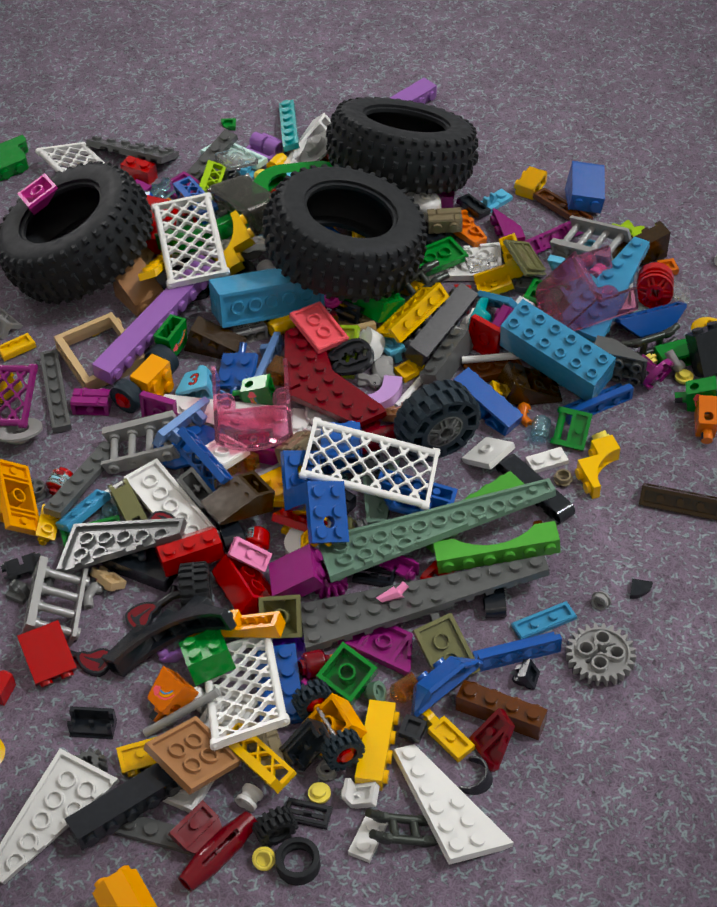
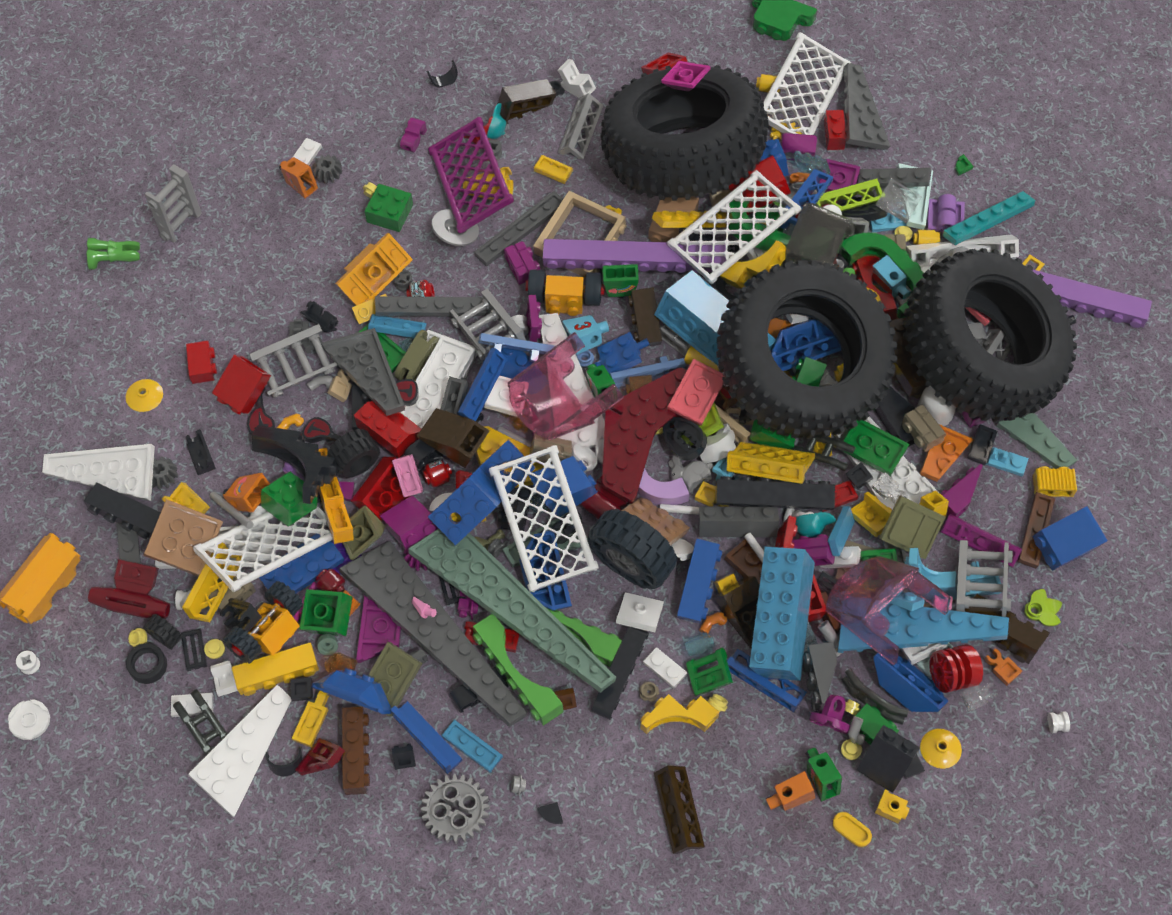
camera: 60 degrees right, 15 degrees up
(114, 632) = (292, 419): none -> light orange arm
(457, 274) = (859, 476): none -> black plate
(491, 177) = (1040, 439): none -> sand green wing

